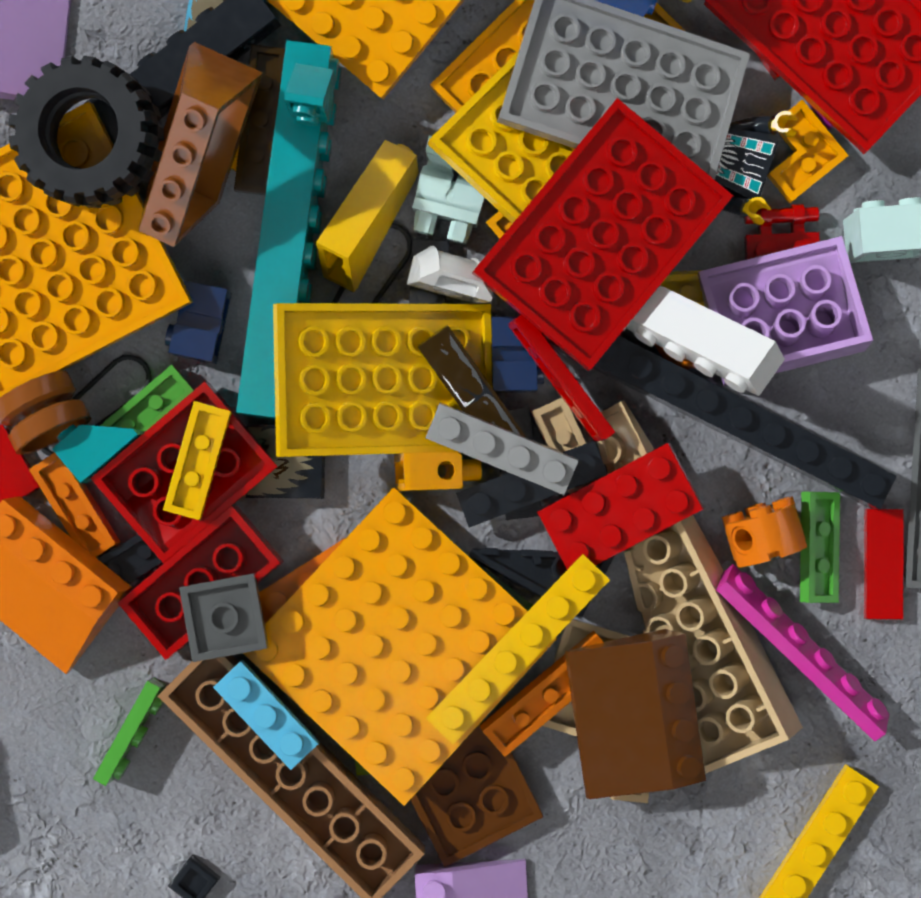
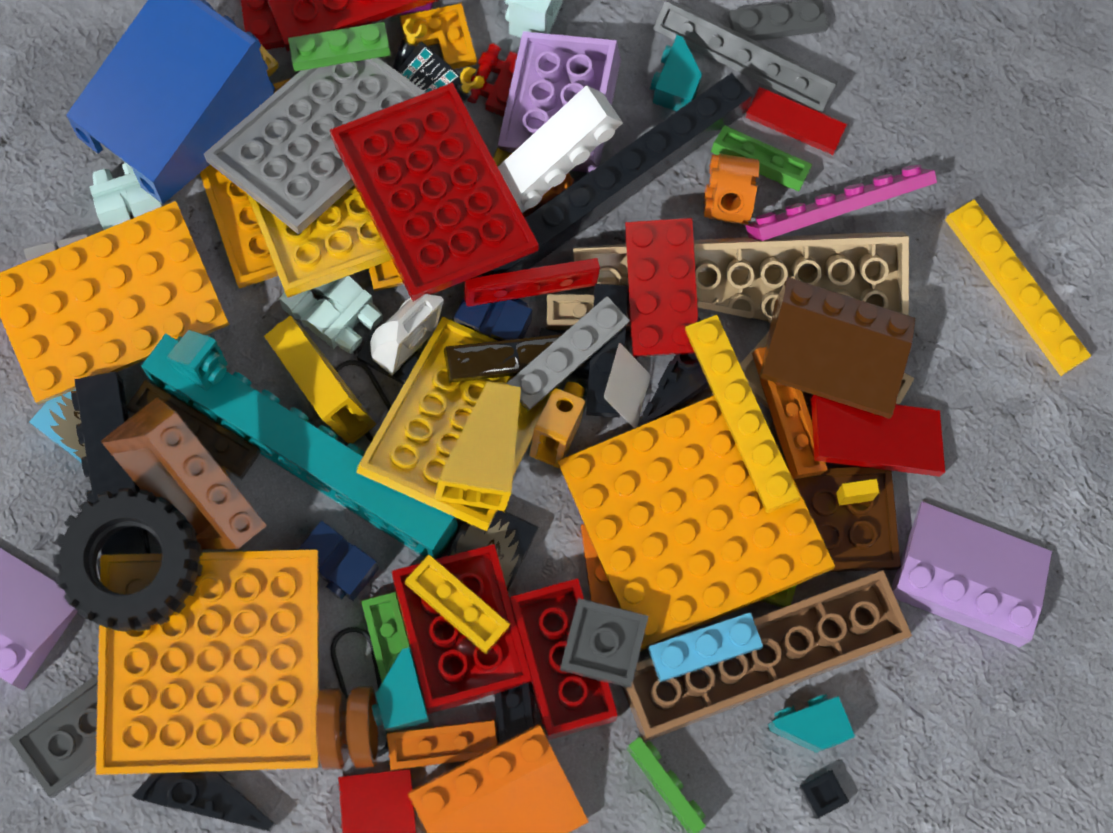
camera: 70 degrees left, 15 degrees down
(250, 848) = (815, 727): none -> teal slope
(347, 419) = (484, 455): none -> yellow slope
(495, 796) = (857, 492): none -> yellow tile
(501, 521) = (627, 386): none -> white sticker
(554, 781) = (904, 443): none -> red tile
(728, 56) = (339, 46): none -> bright green plate
(872, 422) = (679, 78): none -> teal slope

